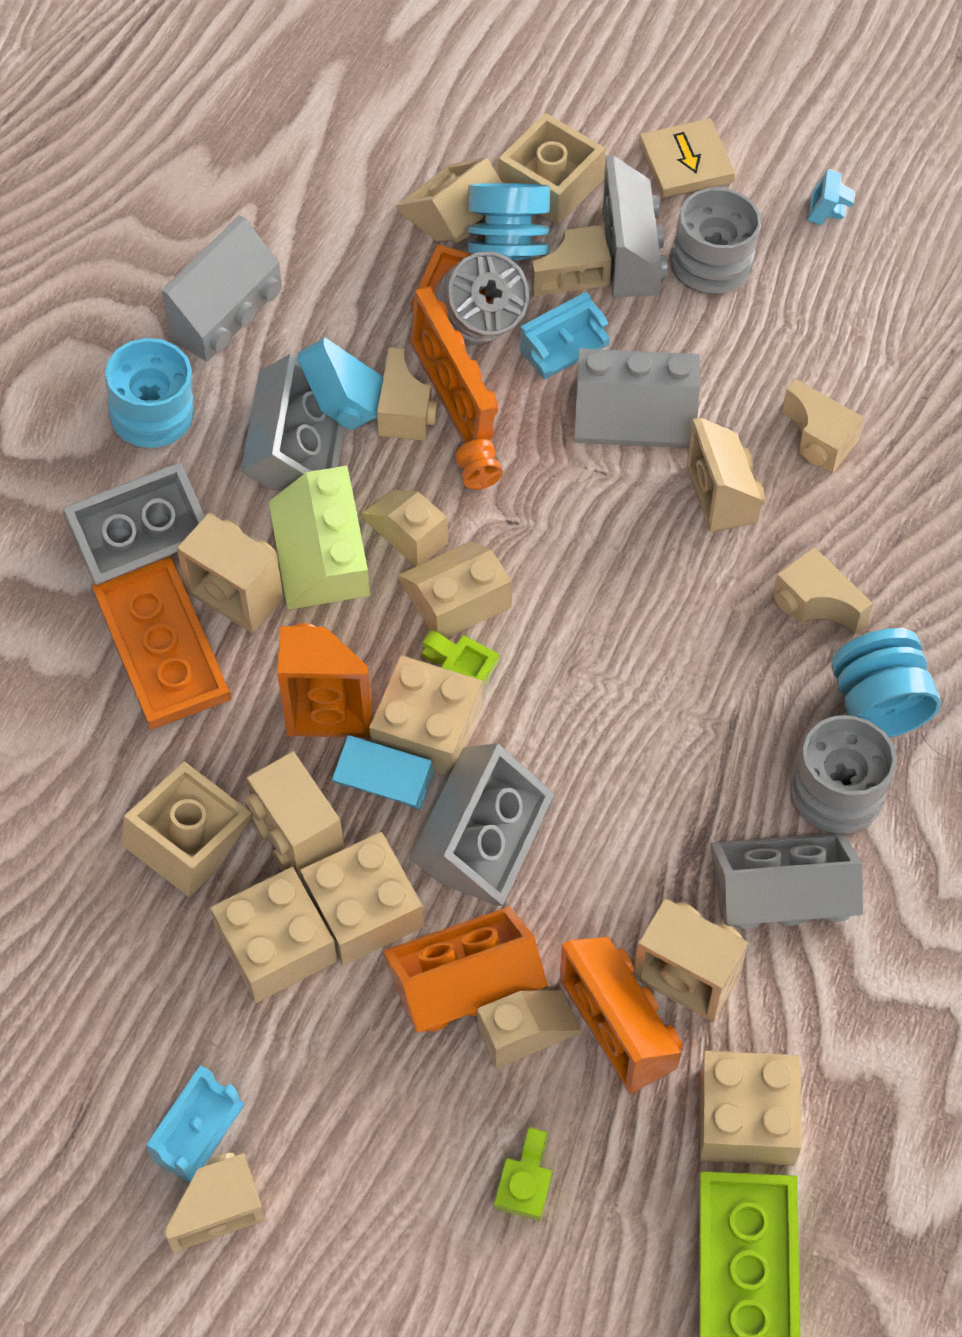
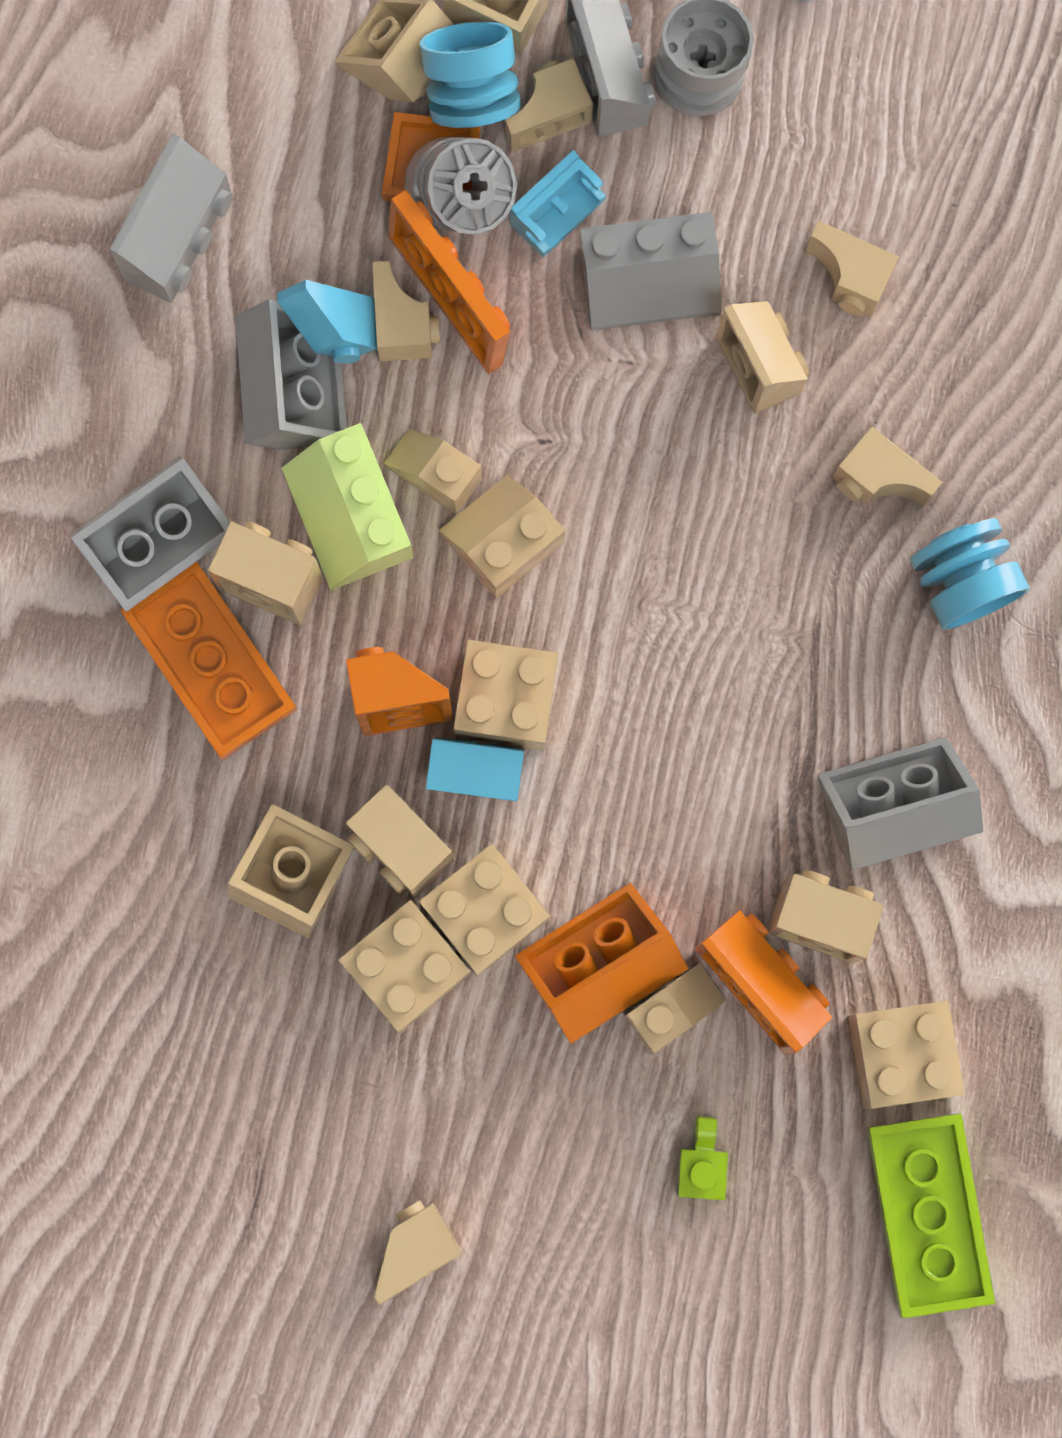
camera: 15 degrees left, 20 degrees up
(149, 392) = (114, 347): medium azure wheel -> none
(194, 1125) = (375, 1178): medium azure hinge -> none
(464, 657) = (532, 624): lime plate -> none
(478, 464) = (497, 384): orange wheel -> none
(482, 824) = (587, 803): light grey slope -> none
(843, 774) = (945, 661): light grey wheel -> none

